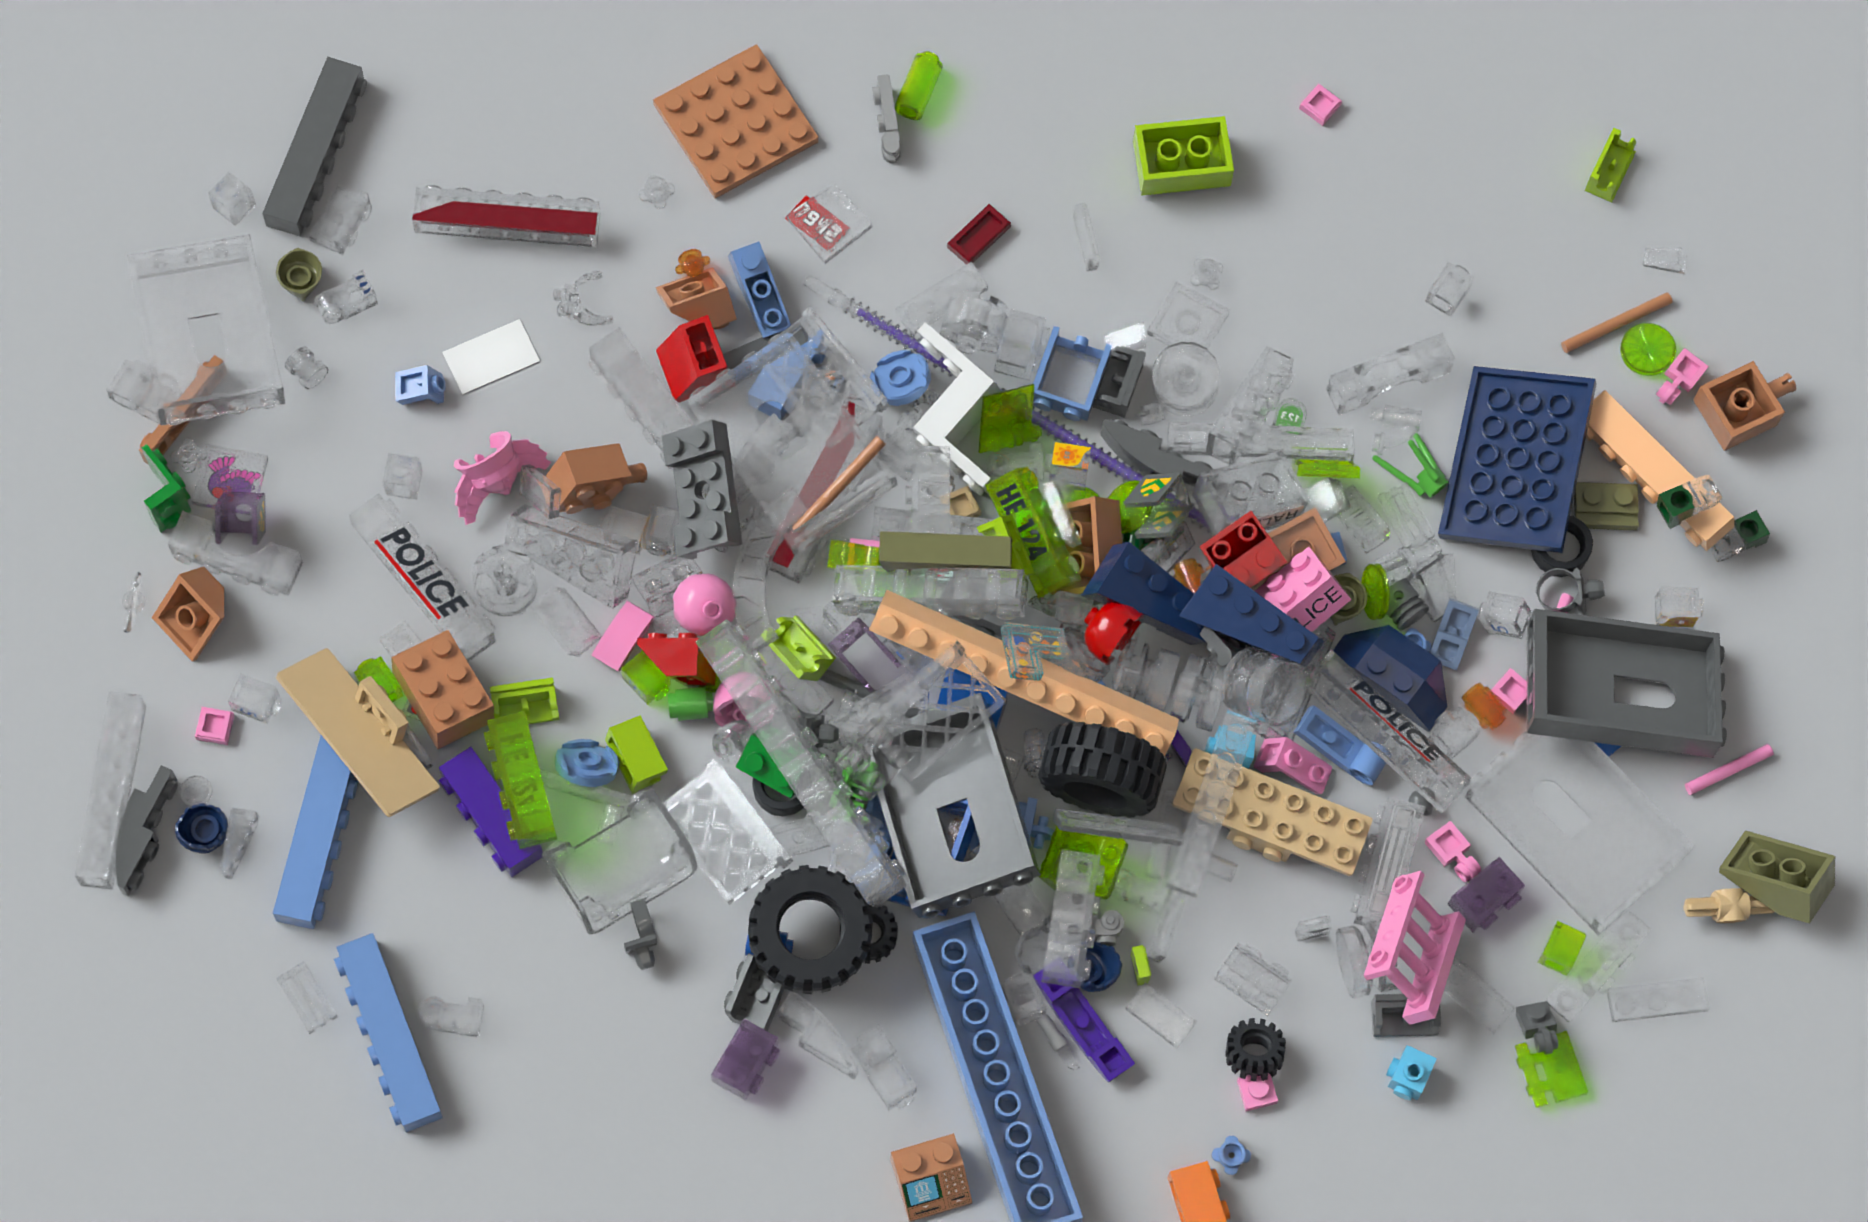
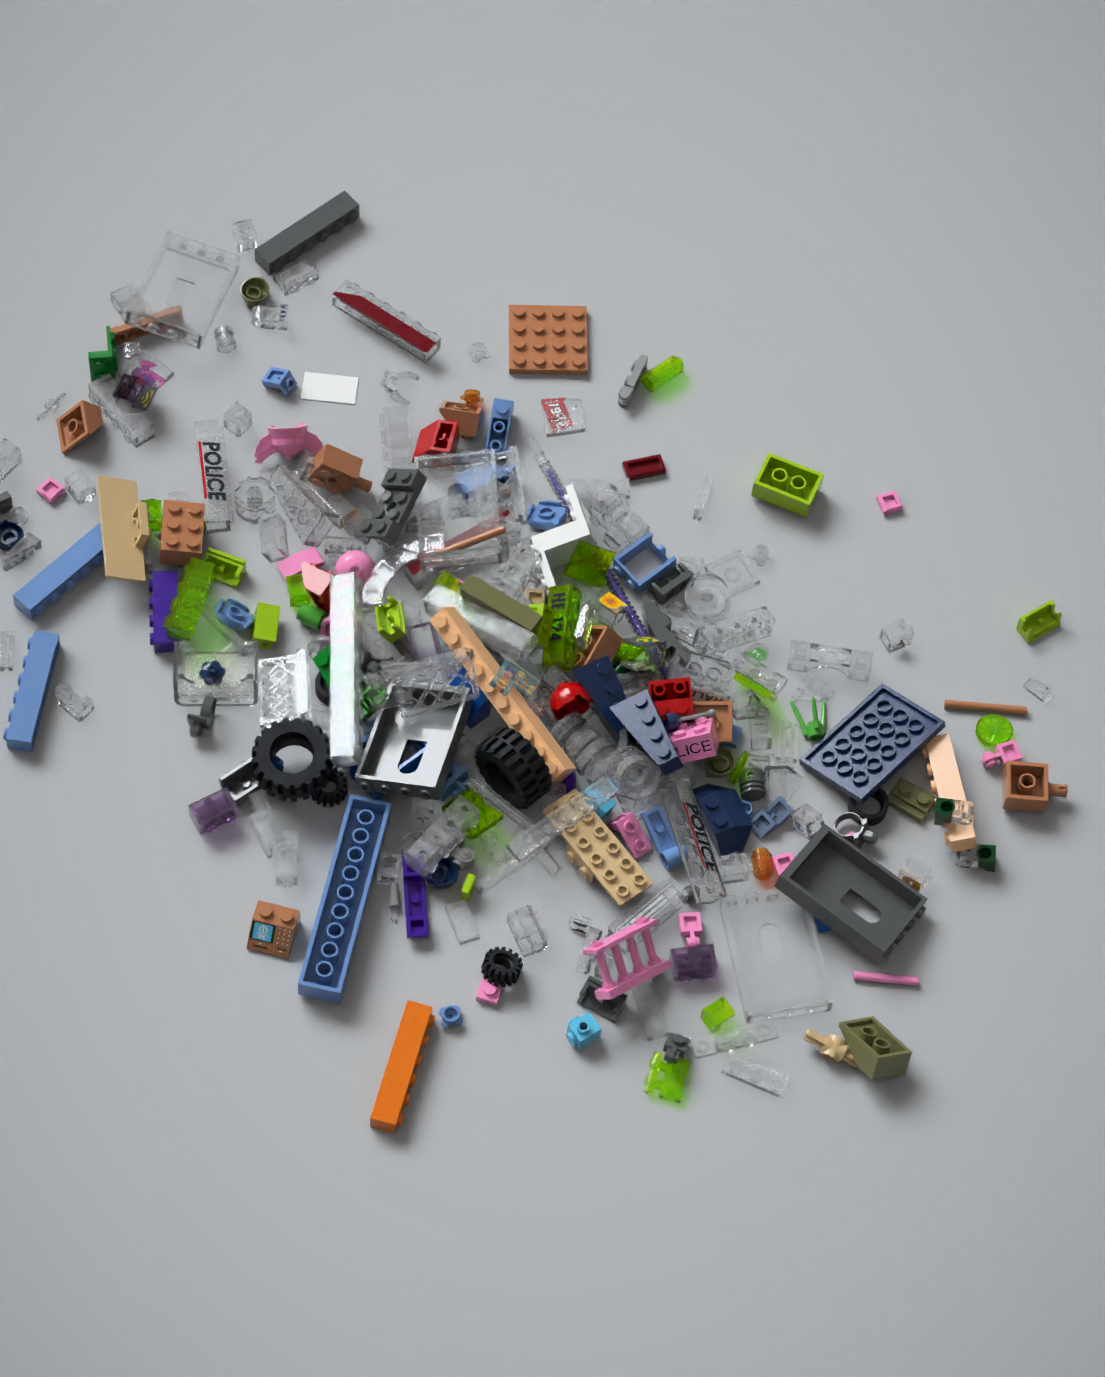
camera: 30 degrees right, 10 degrees down
(612, 872) = (212, 672): none -> dark blue plant
(1267, 583) = (673, 720): none -> hinge

